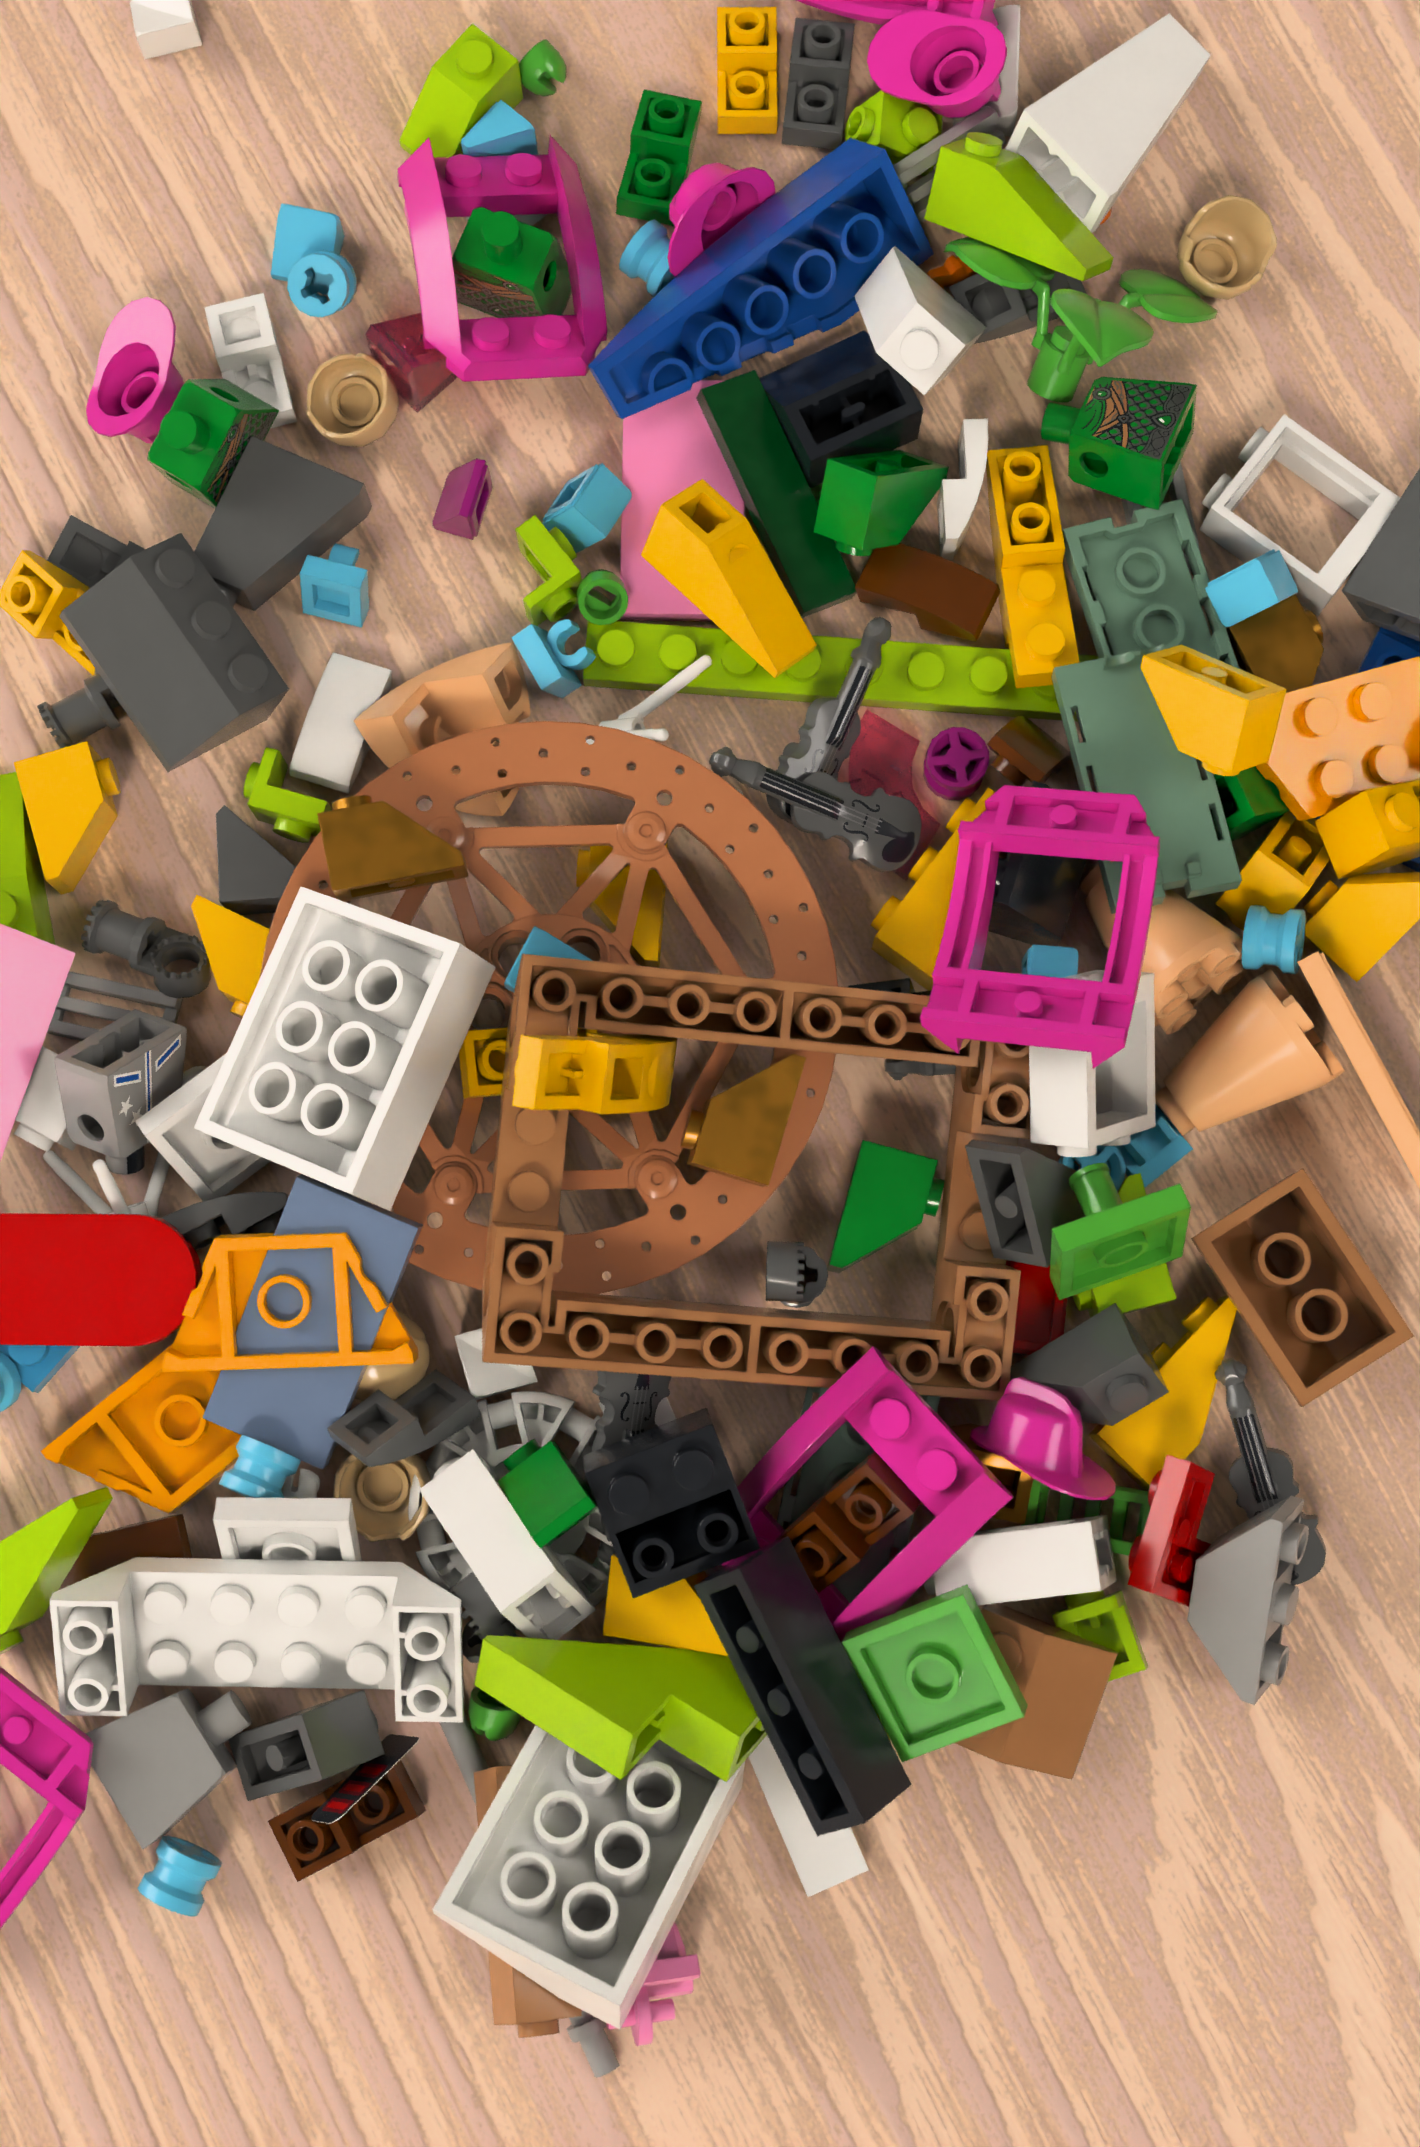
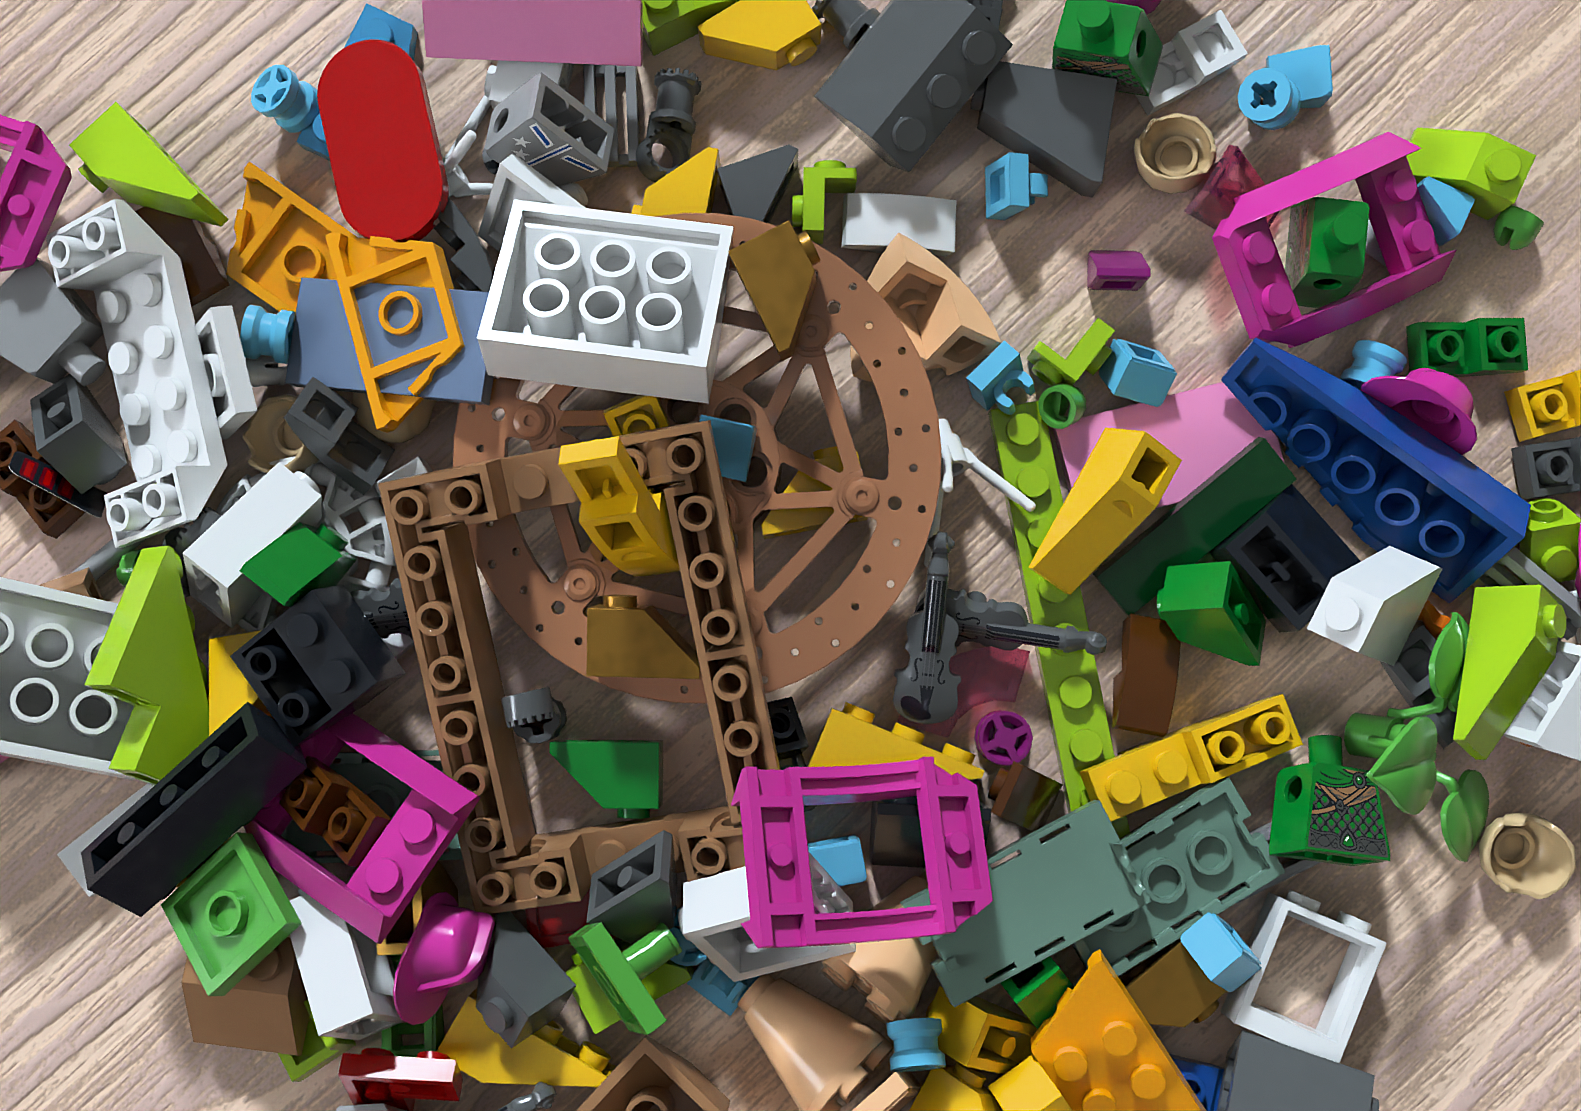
camera: 75 degrees right, 5 degrees up
(960, 496) = (1233, 681): white slope -> none
(1214, 708) = (1095, 948): yellow slope -> none

